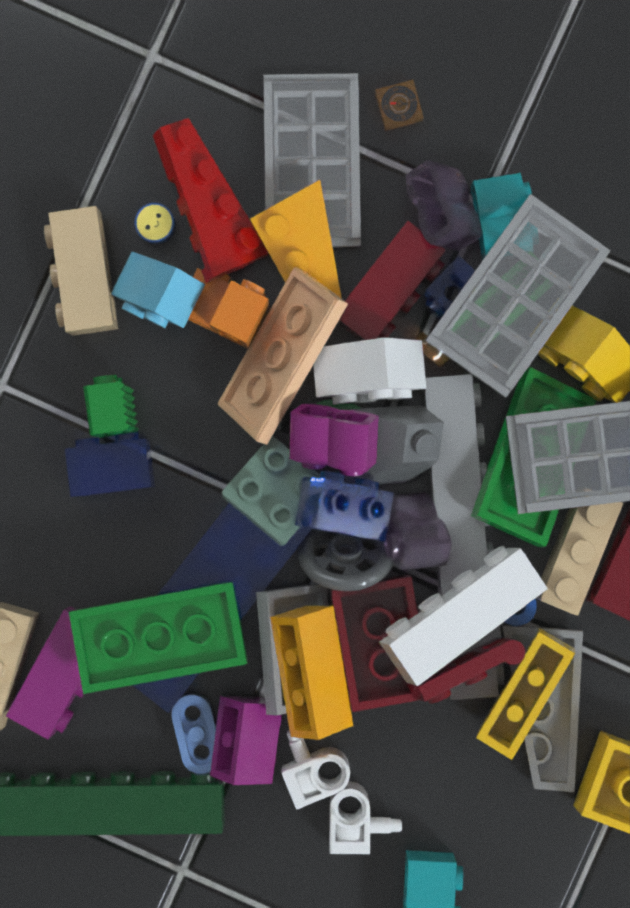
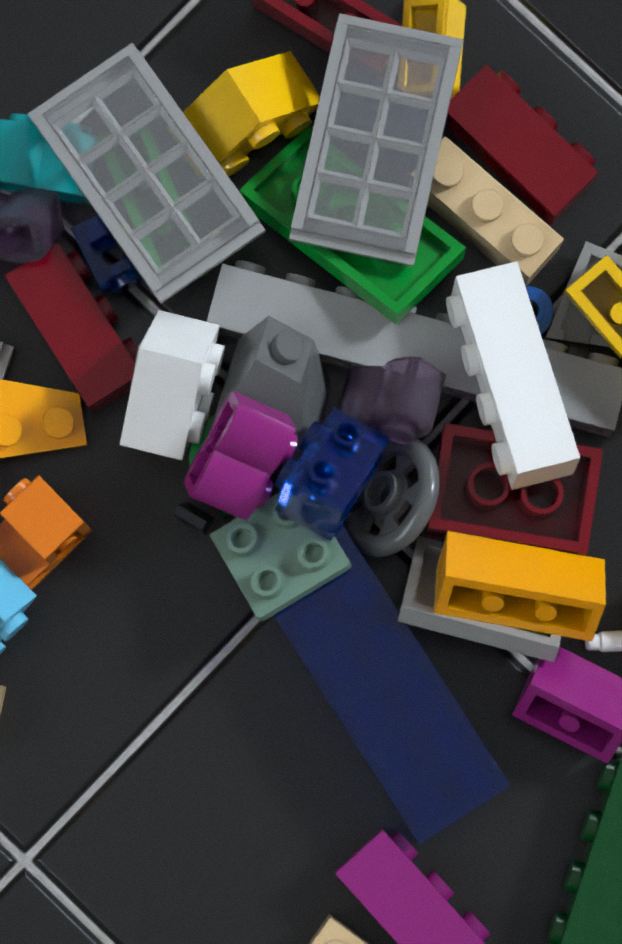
camera: 70 degrees left, 5 degrees down
(110, 407) = (102, 724): green brick -> none
(110, 466) = (175, 754): clear blue piece -> none
(158, 637) = (410, 761): green plate -> none
(194, 731) = (547, 764): medium blue plate -> none
(281, 355) = (114, 487): light nougat tile -> none
(431, 352) = (177, 303): clear orange tile -> none
(468, 669) = (582, 392): dark red plate -> none

